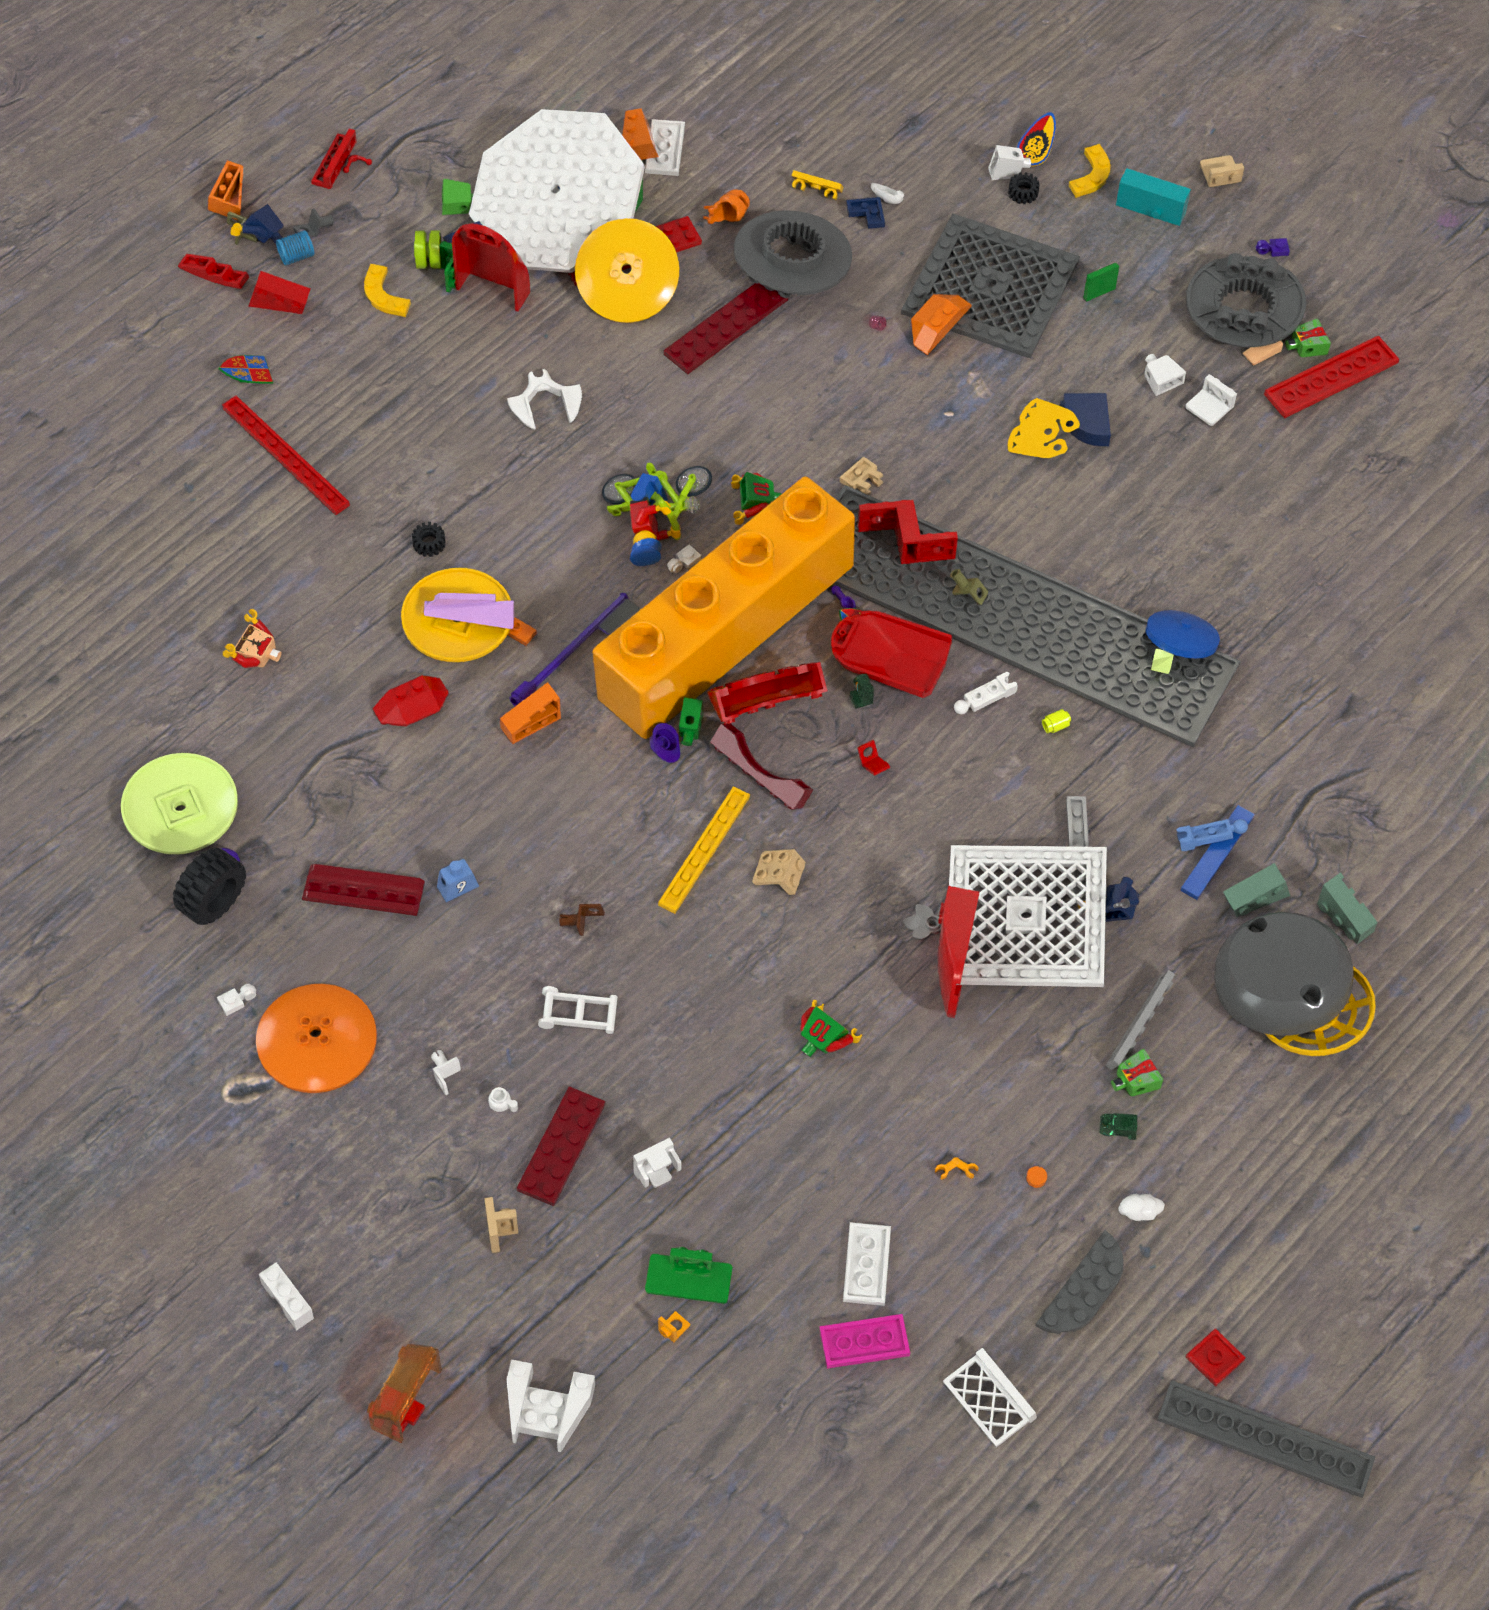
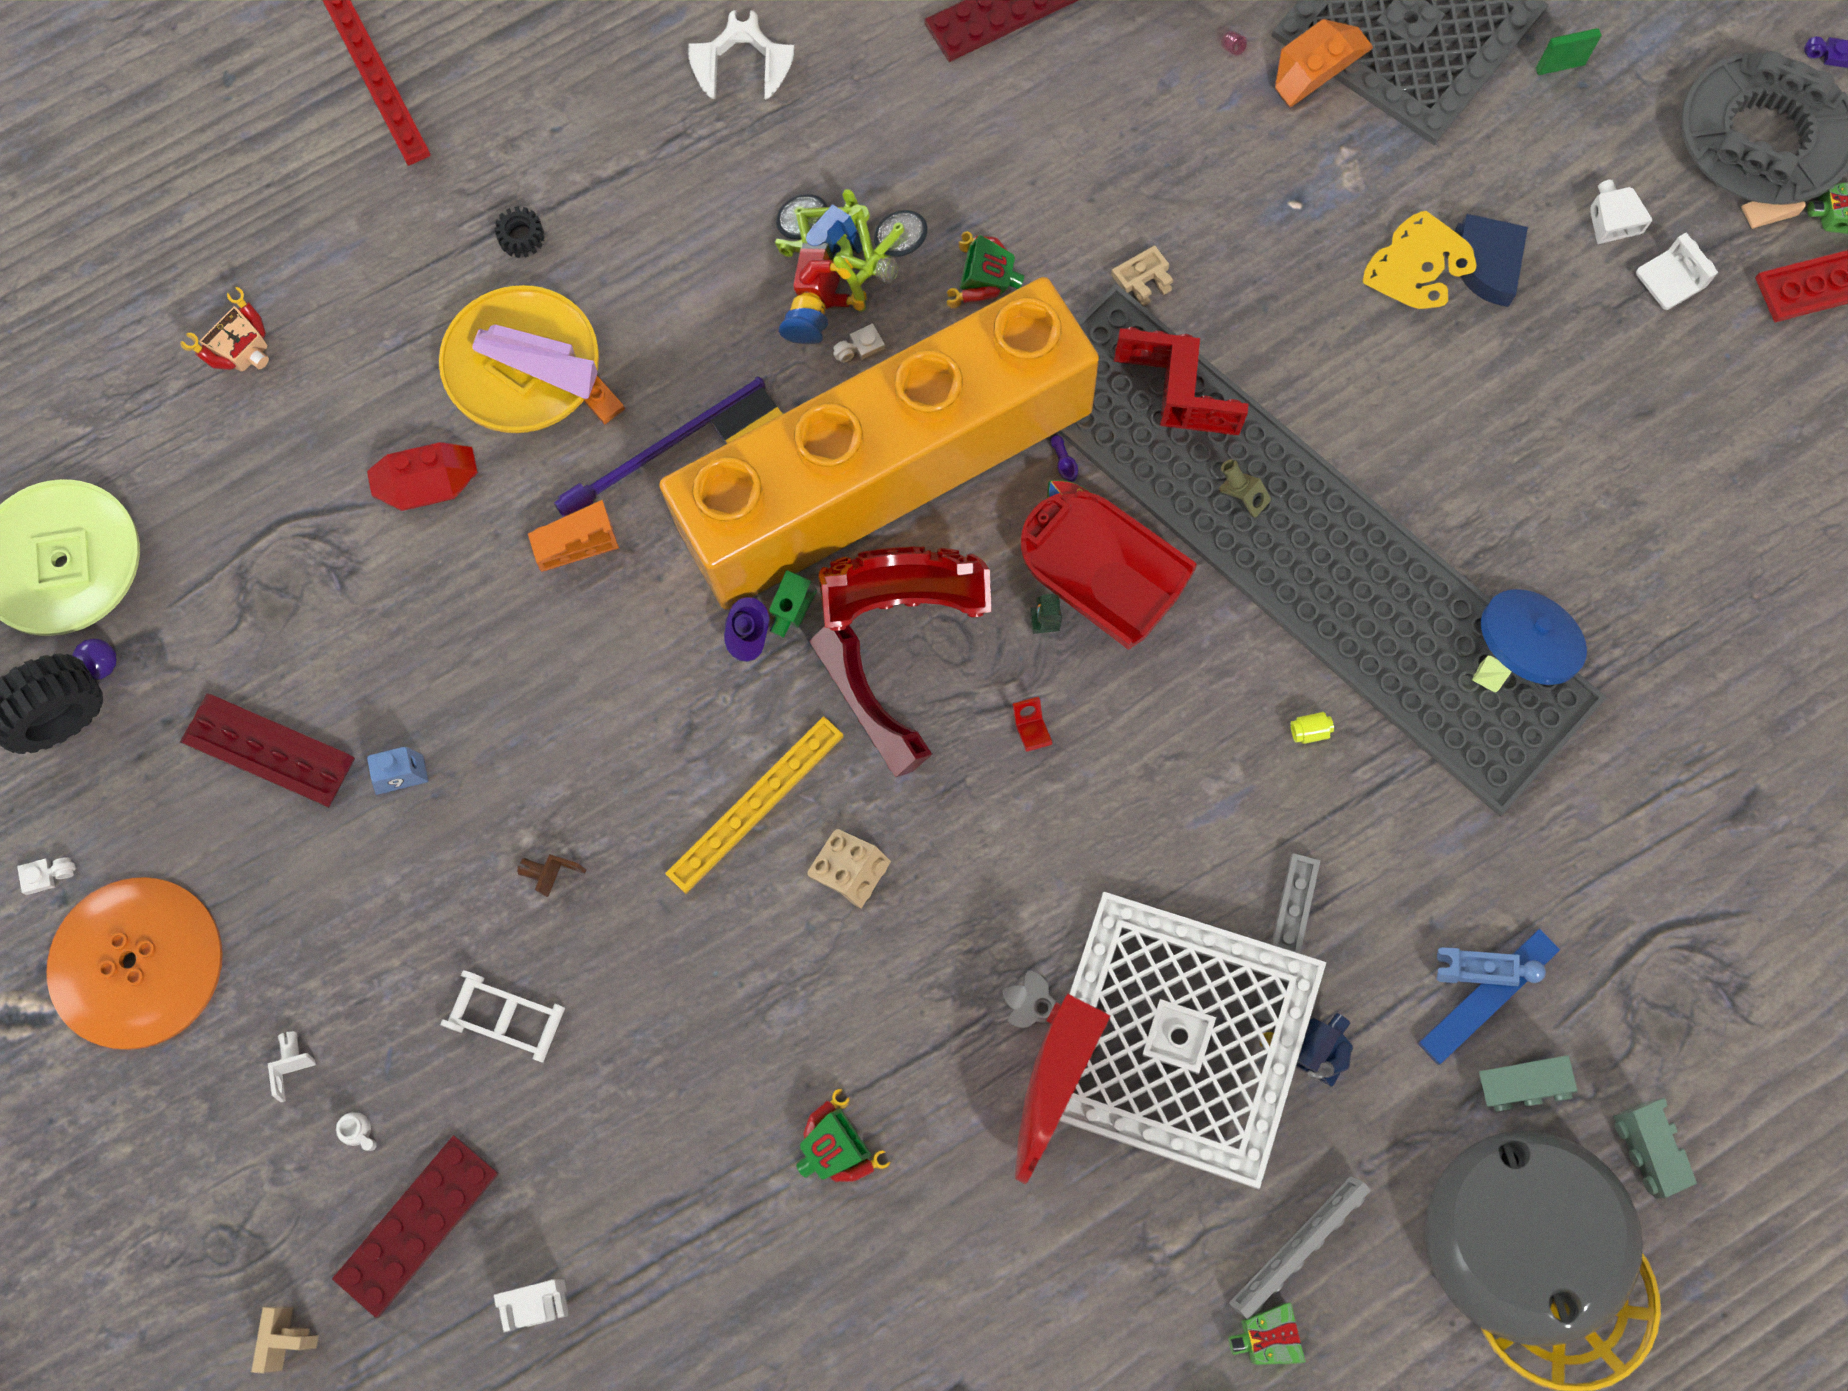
camera: 15 degrees right, 15 degrees up
(986, 694) = (1222, 659): white plate -> none

